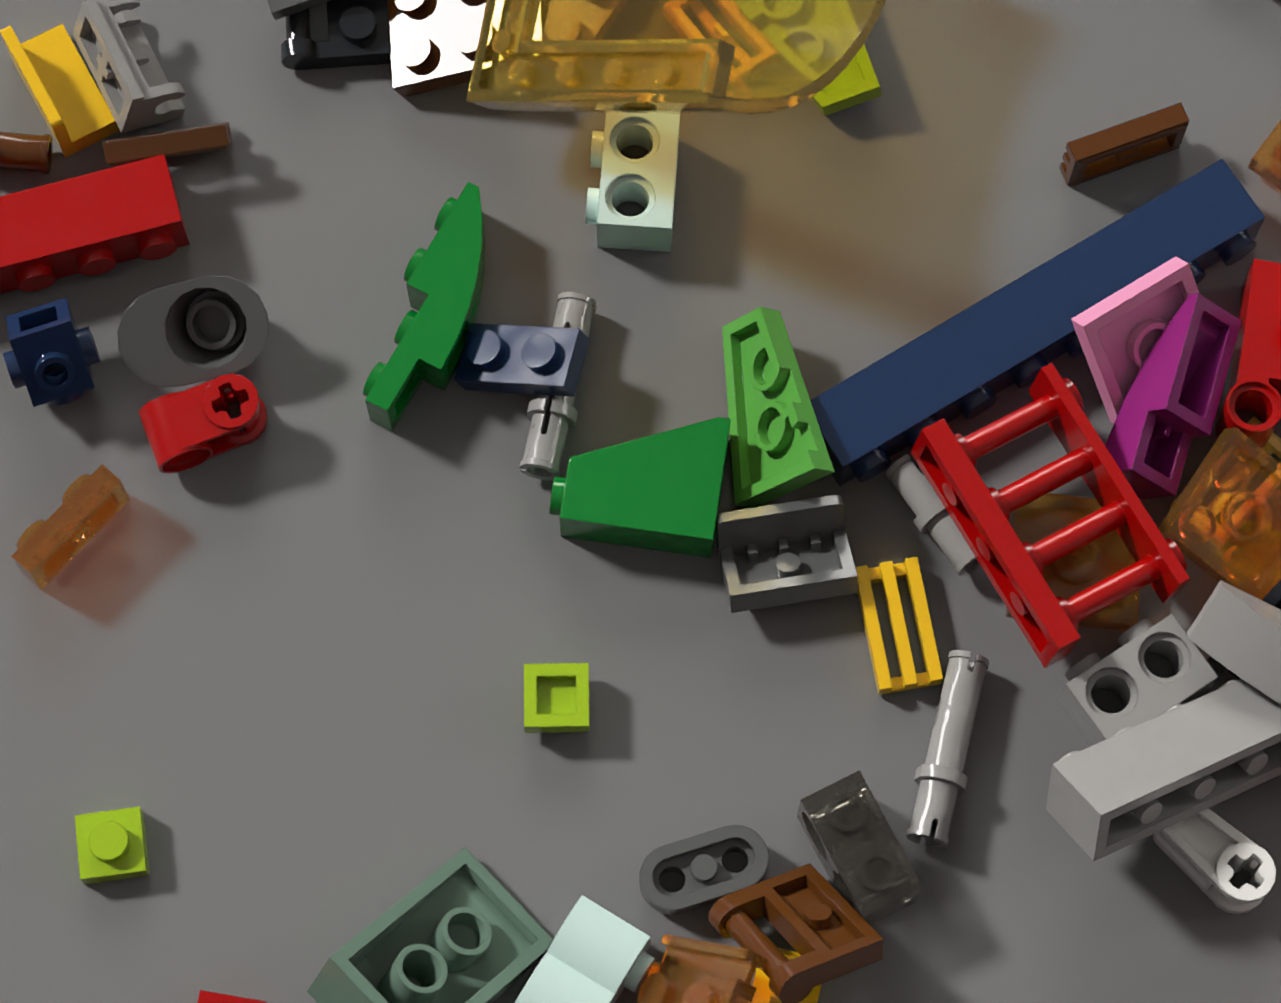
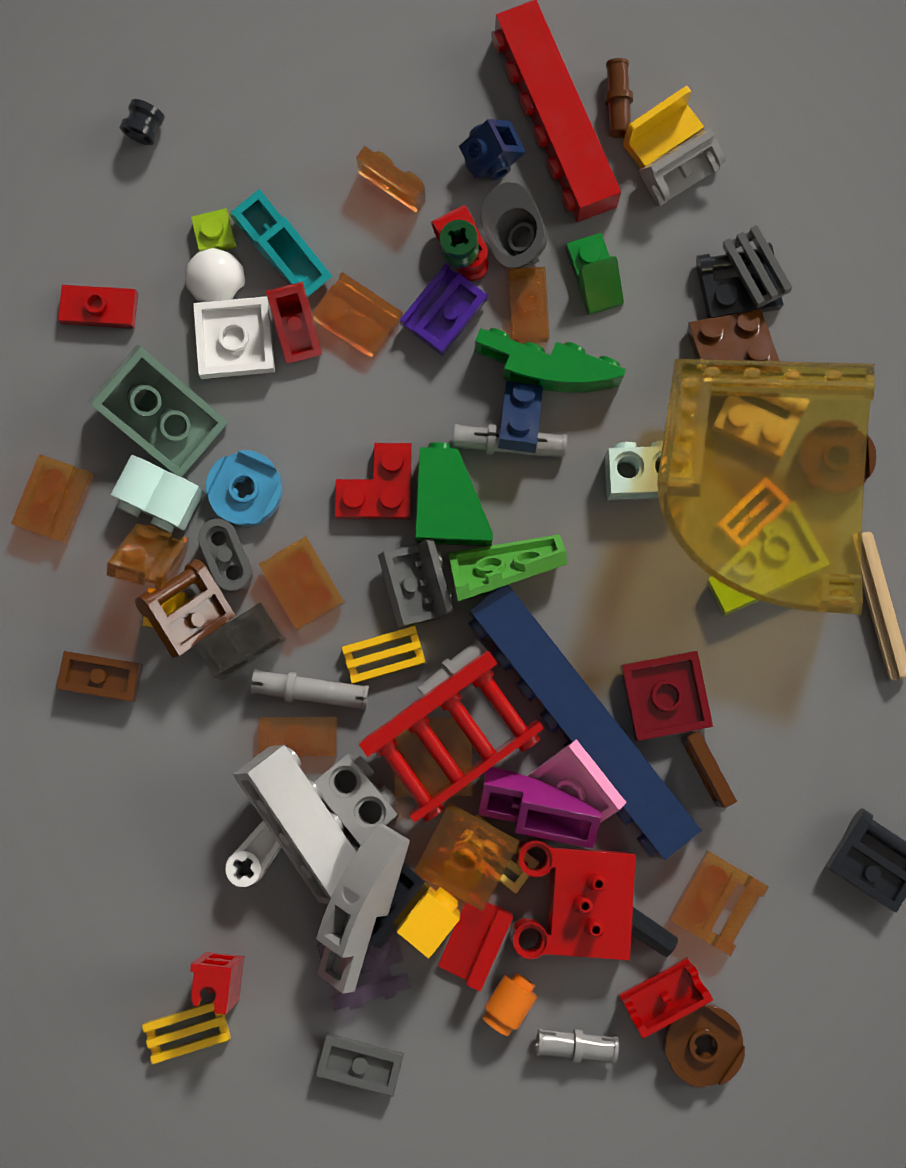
camera: 85 degrees right, 10 degrees up
(156, 728) = (279, 242): none -> teal slope
(169, 143) = (633, 197): reddish brown tile -> none
(197, 849) = (214, 275): none -> white hair
(230, 420) = (463, 252): none -> dark green wheel
(294, 221) = (595, 273): none -> green slope
(302, 613) = (357, 315): none -> clear orange plate
(310, 709) = (294, 322): none -> red slope
(315, 822) = (234, 337): none -> white plate
(316, 466) = (443, 309): none -> dark purple plate
(326, 332) = (528, 304): none -> clear orange plate
(556, 698) = (318, 461): lime plate -> none
(579, 791) = (235, 469): none -> dark azure plate
(622, 592) = (384, 495): none -> red plate
(765, 745) = (301, 583): none -> clear orange plate
(1003, 194) = (666, 695): none -> dark red plate
(1020, 777) = (302, 734): none -> clear orange plate

